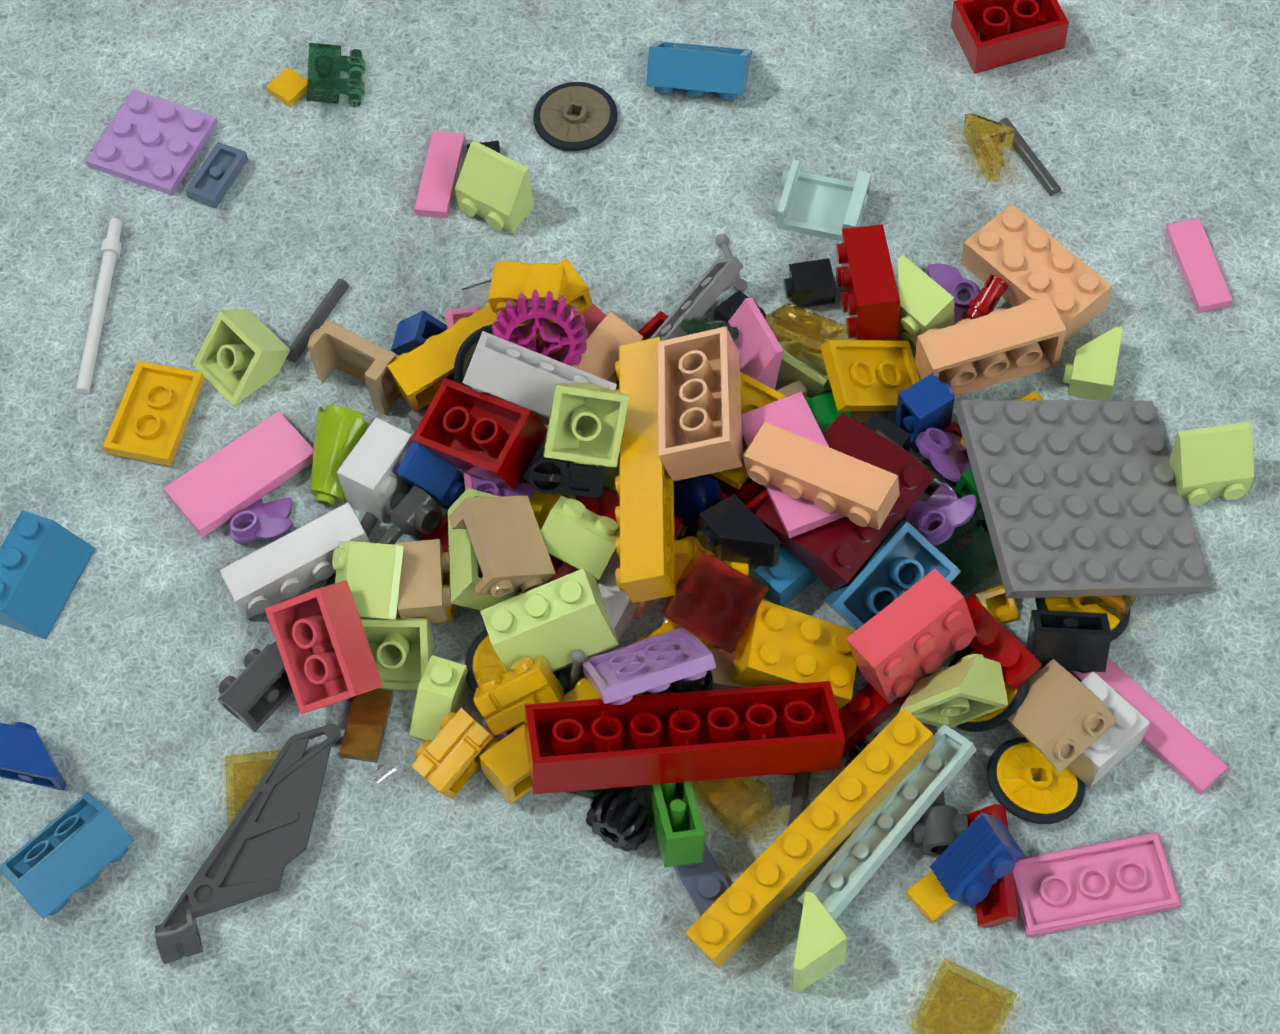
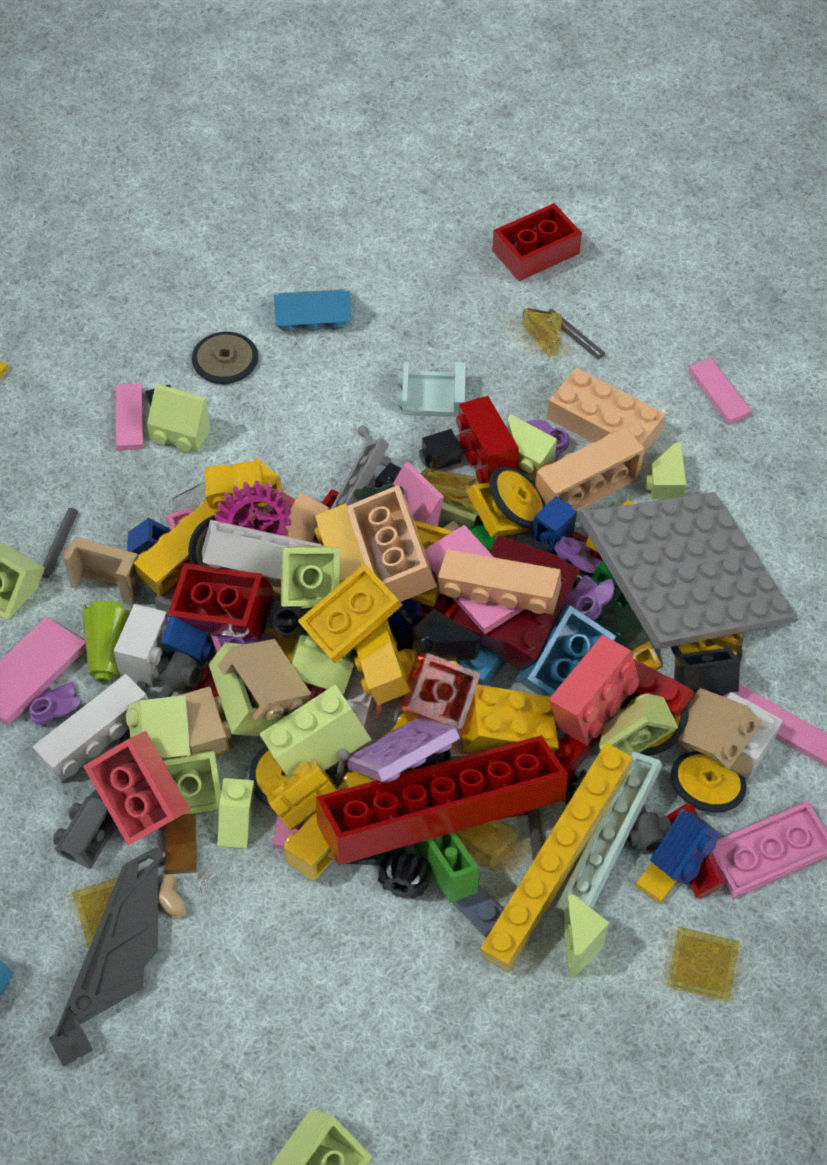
camera: 20 degrees left, 5 degrees down
(324, 74) = (18, 356): clear green plate -> none
(335, 788) = (169, 898): none -> tan arm
(453, 753) = (260, 850): yellow brick -> none
(621, 482) = (350, 613): none -> yellow plate
(884, 362) = (515, 496): none -> yellow wheel
(987, 297) = (576, 438): red pin -> none
(1213, 462) = (773, 526): yellowish green slope -> none

